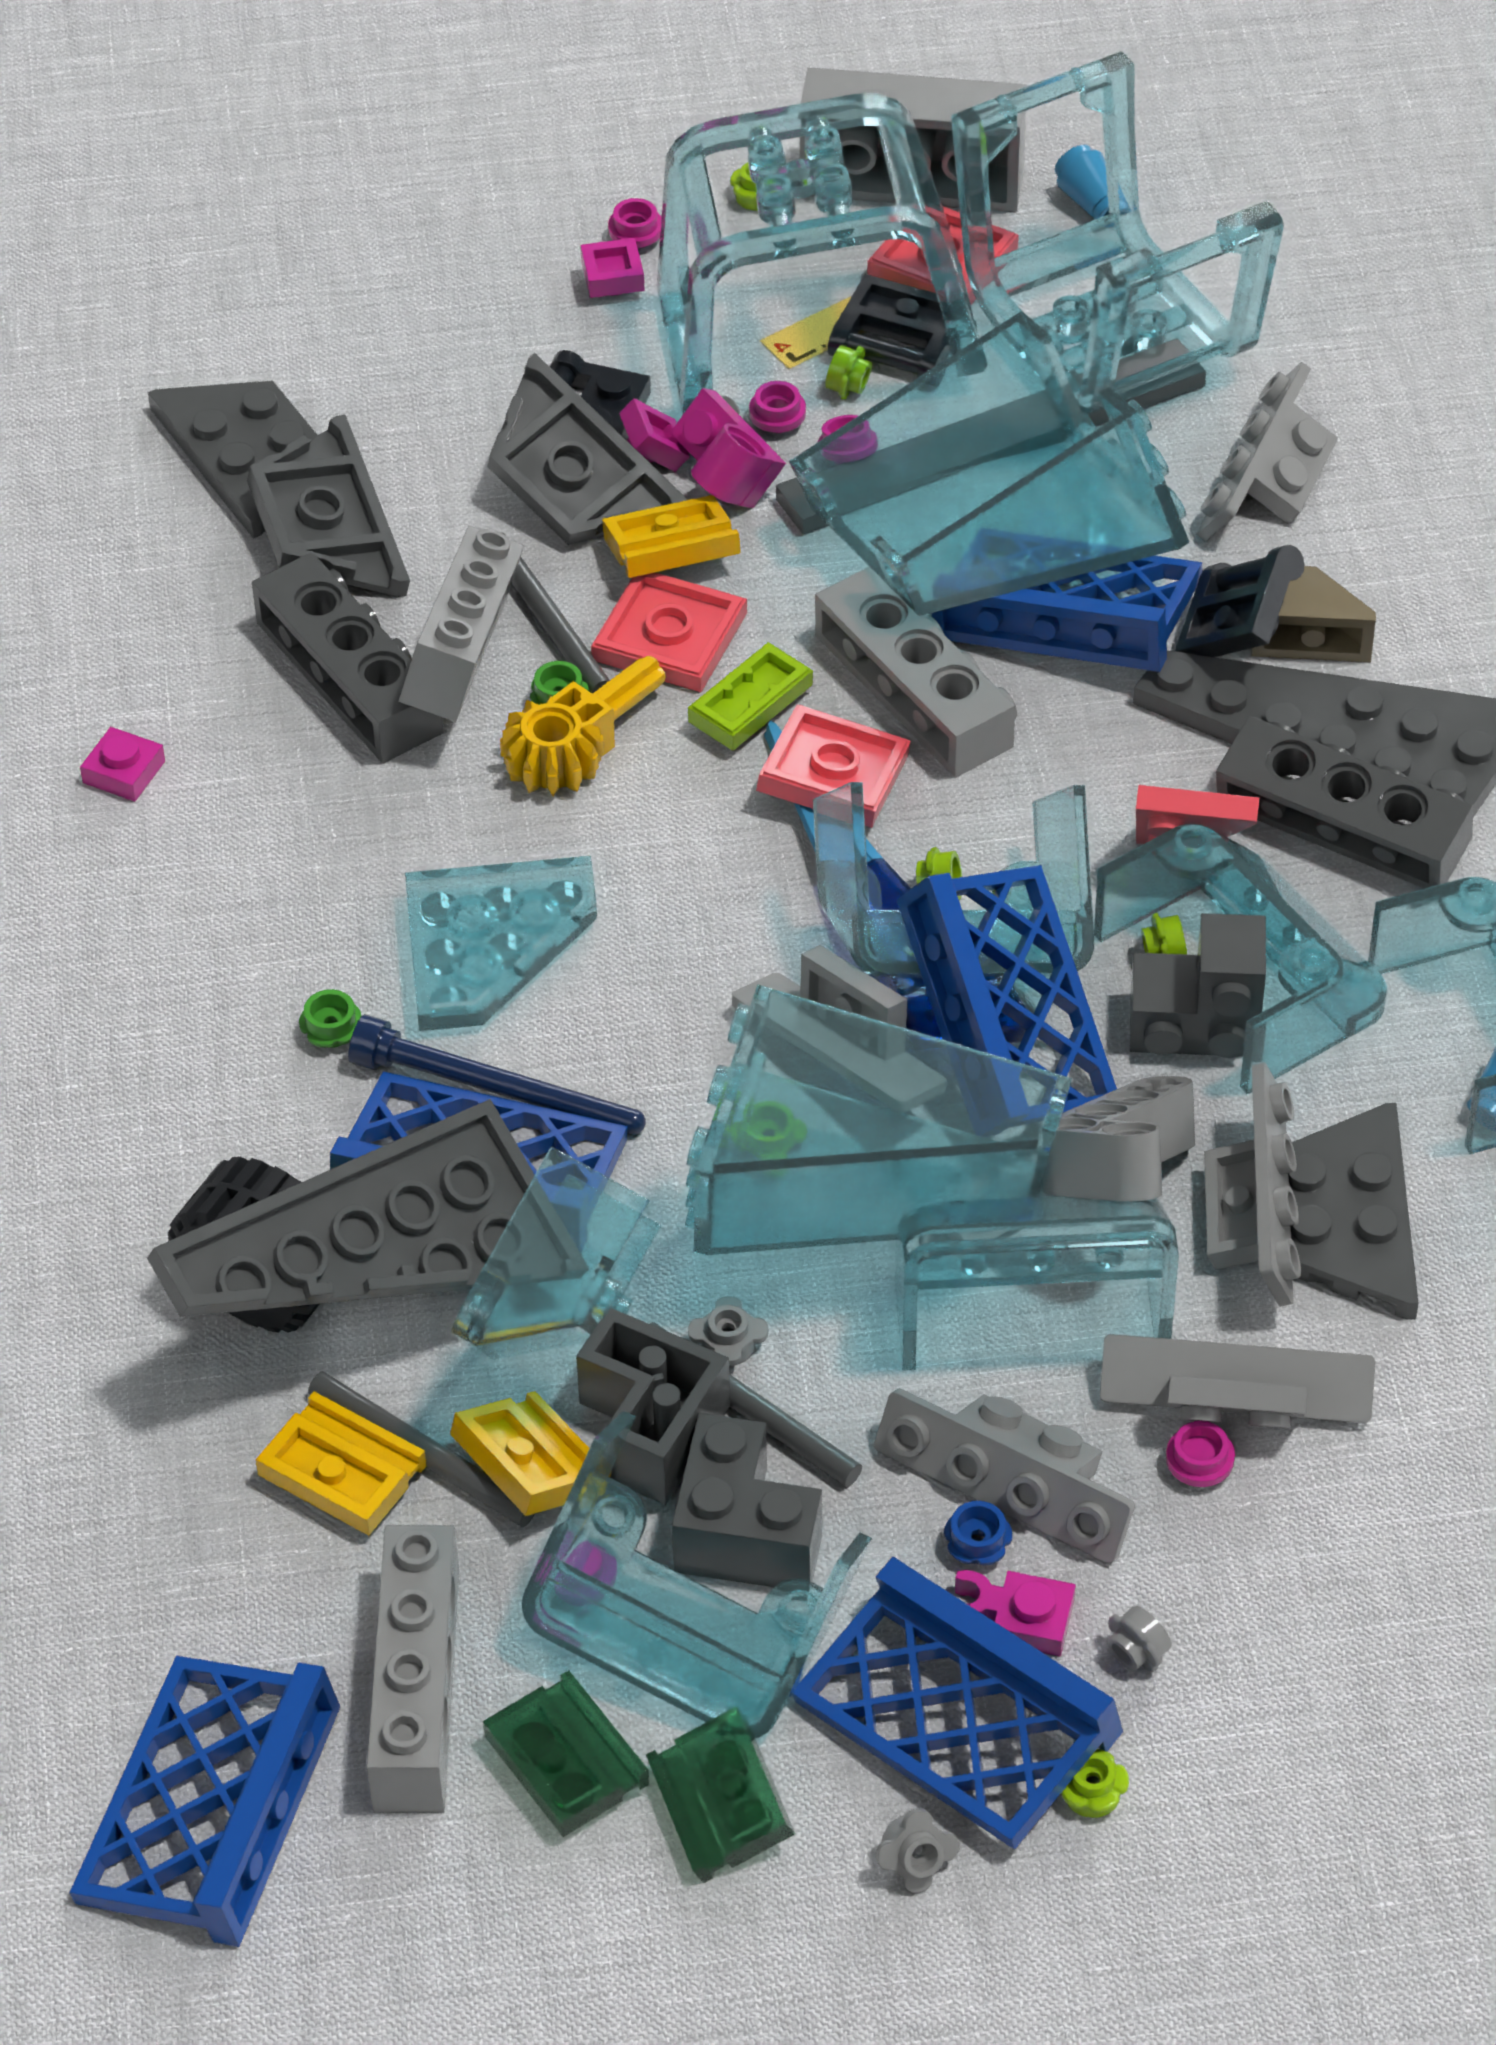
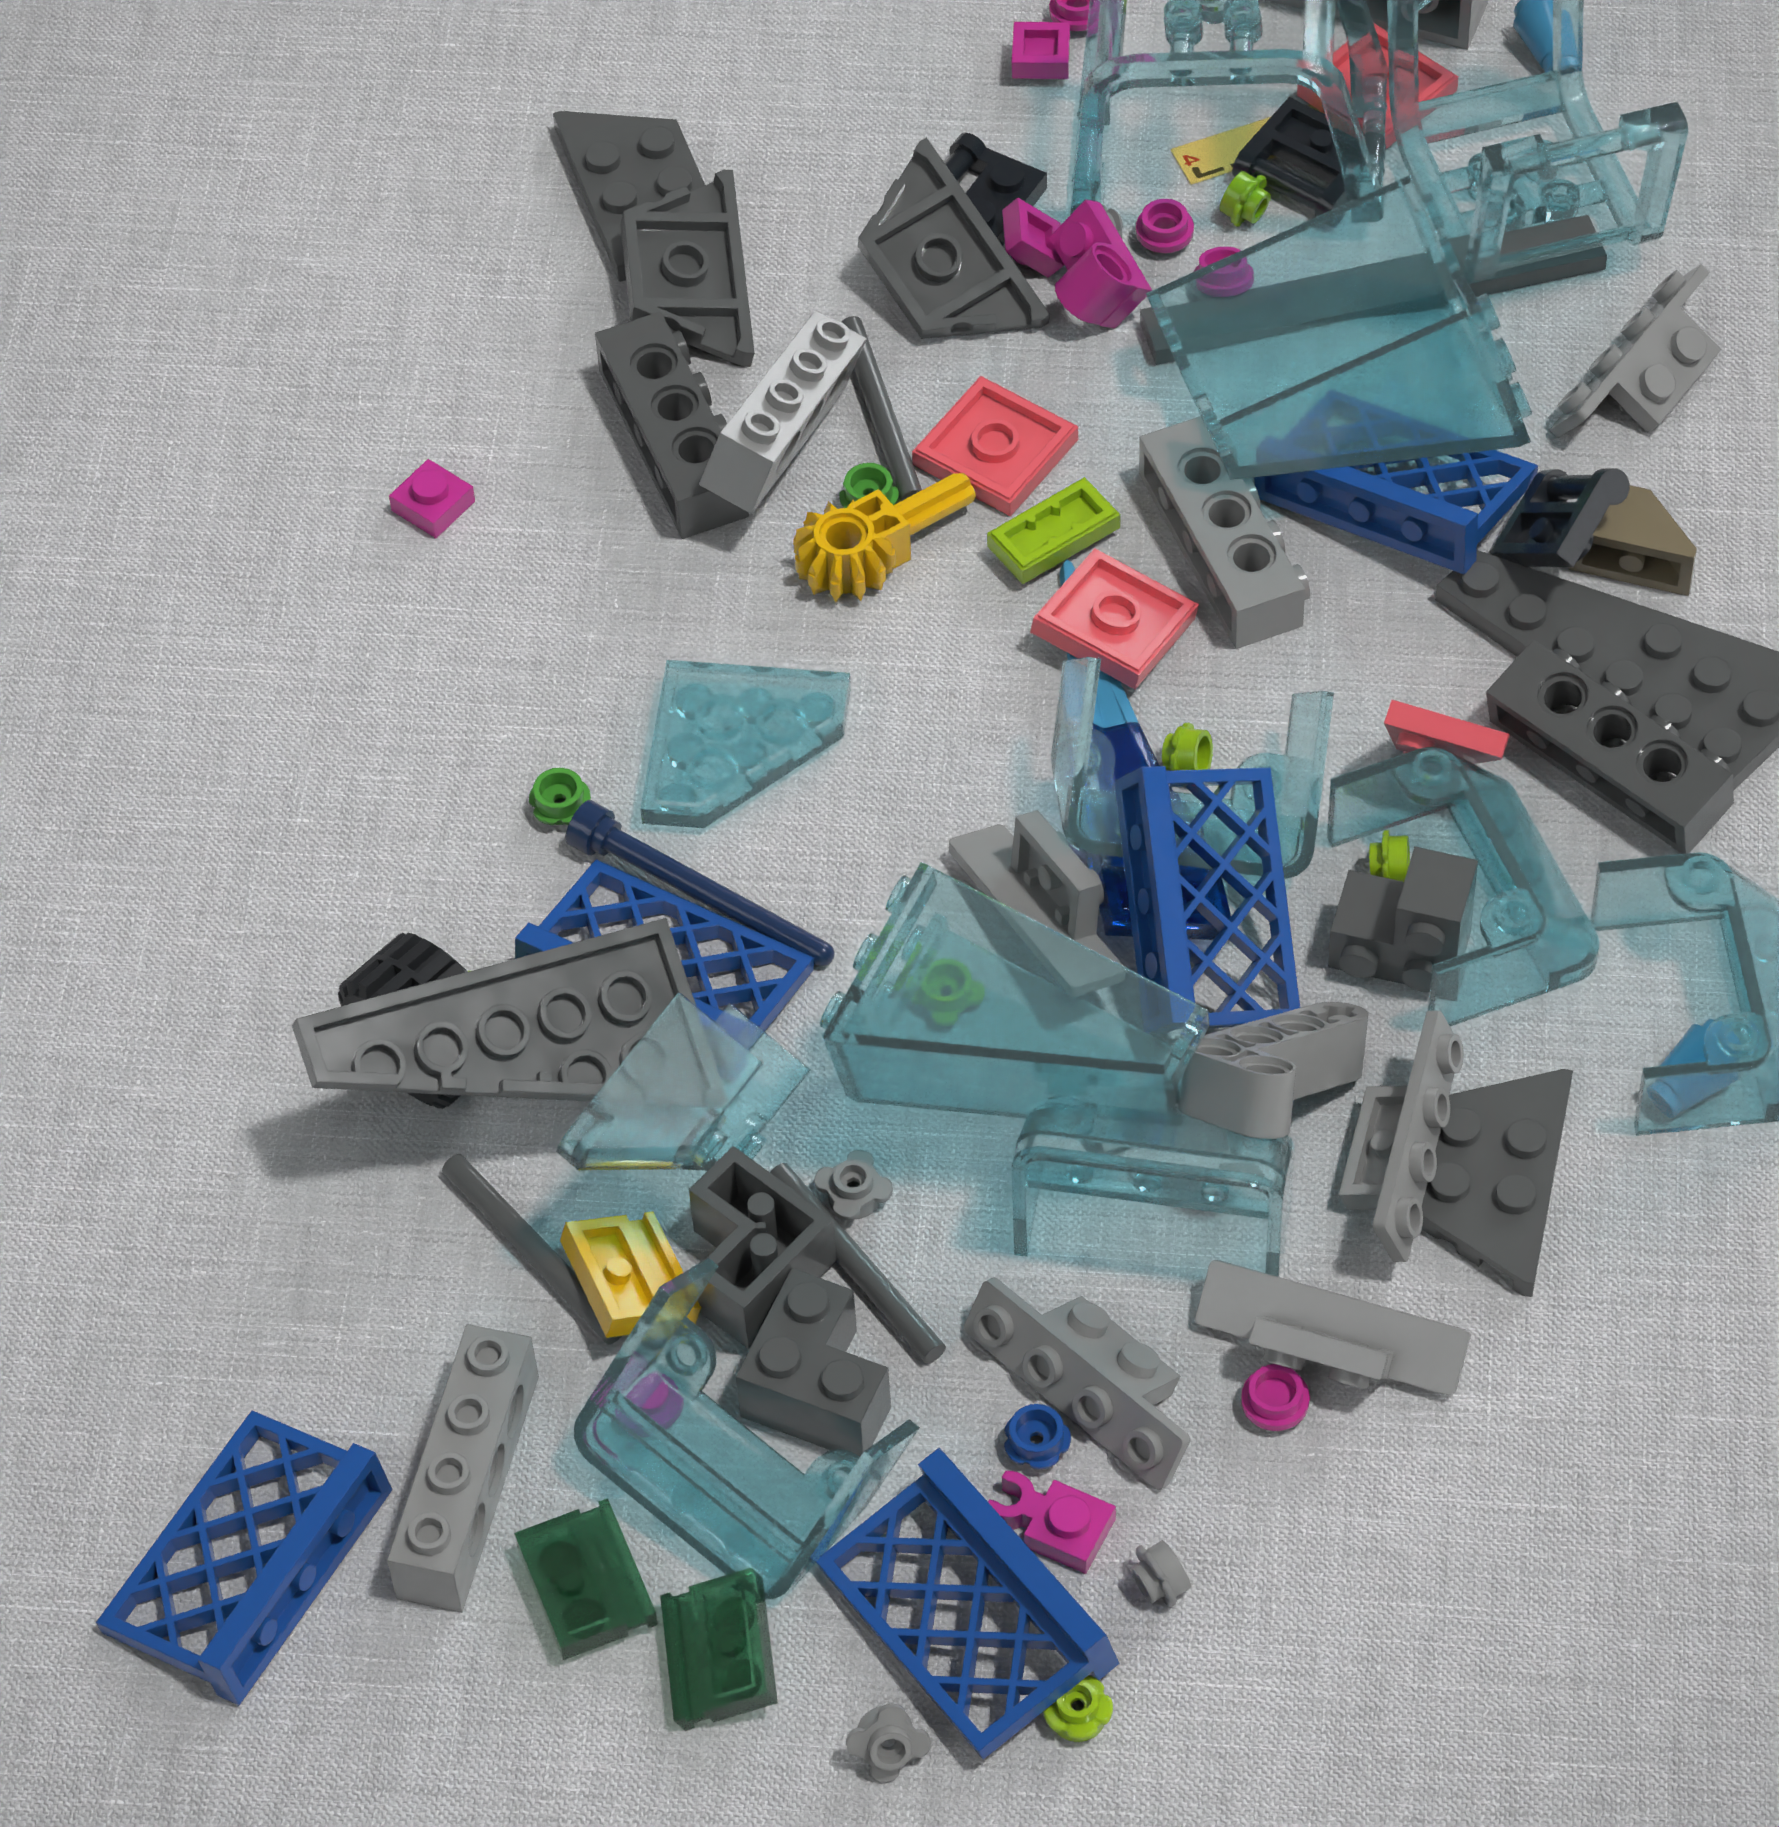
camera: 15 degrees right, 5 degrees up
(341, 1463) = (451, 1249): yellow plate -> none
(671, 536) = (1020, 348): yellow plate -> none

